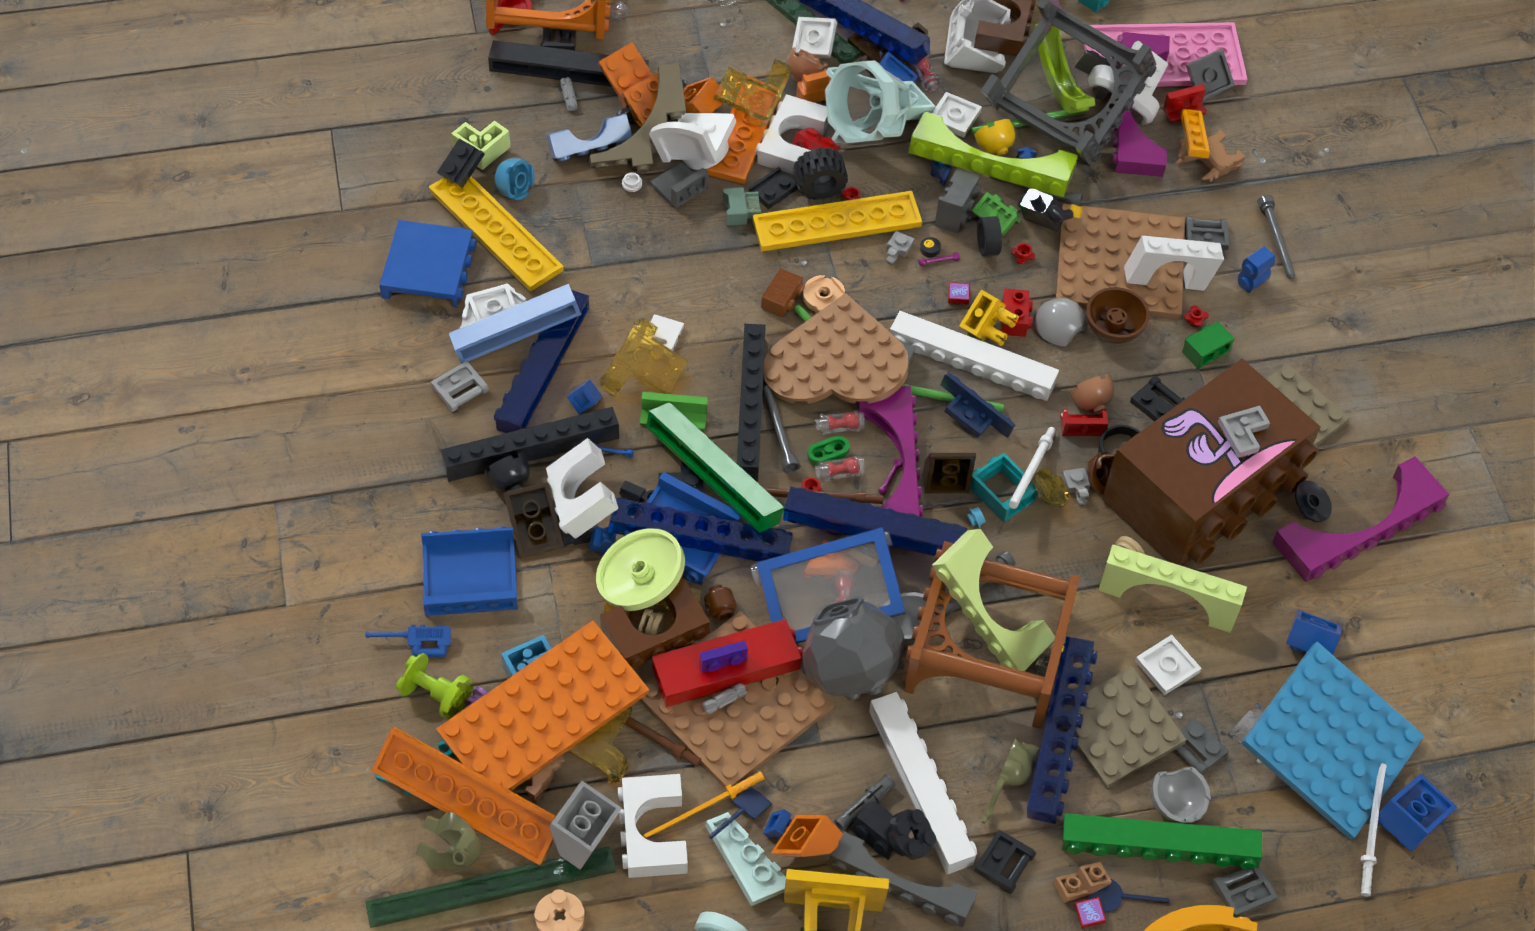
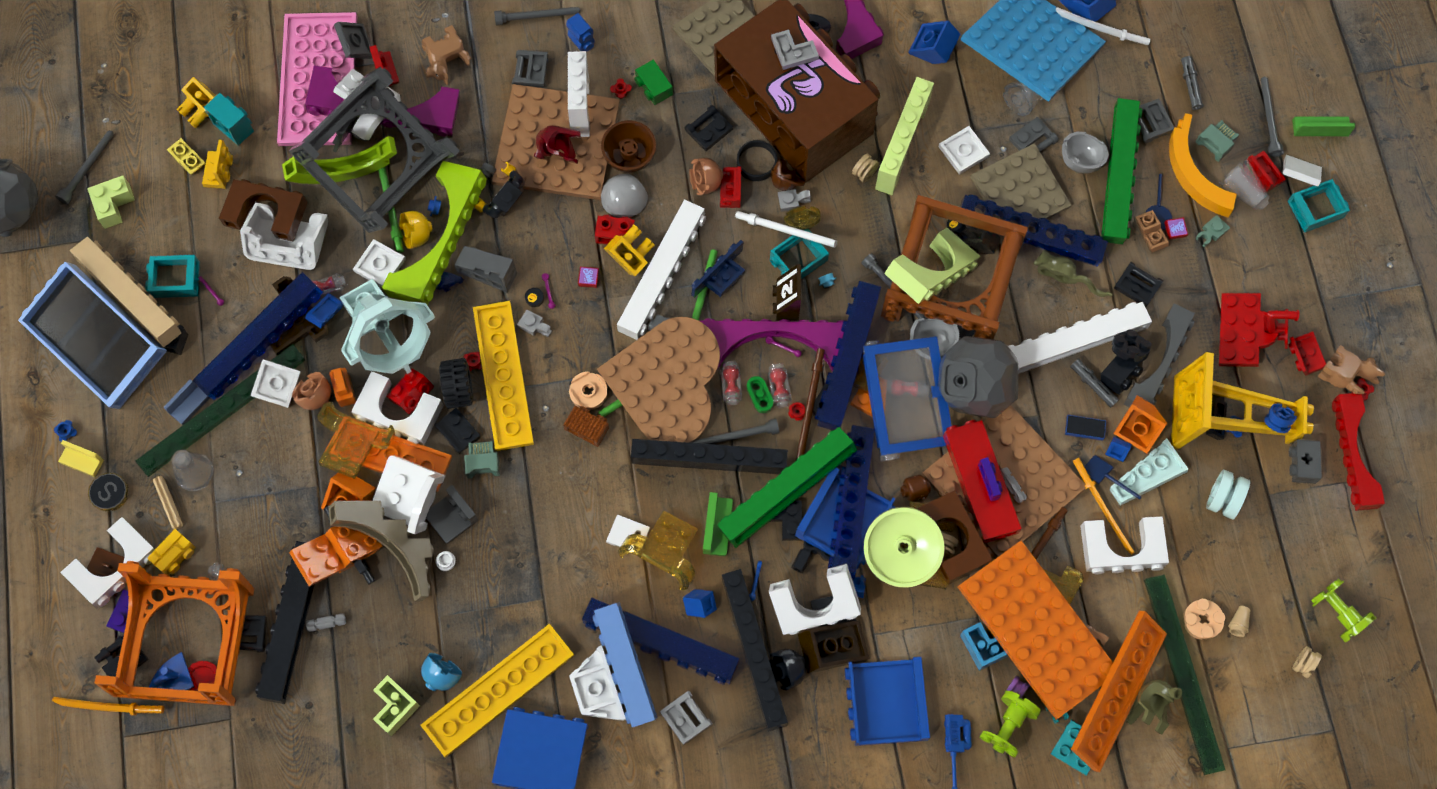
camera: 85 degrees left, 15 degrees up
(460, 163) = (424, 722): black plate -> none
(582, 823) = (1140, 592): light grey slope -> none
(613, 130) = (385, 577): arch -> none
(806, 791) = (1085, 427): none -> black tile
(989, 236) = (533, 243): black tyre -> none
(994, 206) = (502, 237): bright green bracket -> none
(1023, 253) = (546, 215): red plate -> none
(1111, 241) = (553, 139): none -> dark red piece
(1195, 133) = (425, 60): light orange tile -> none

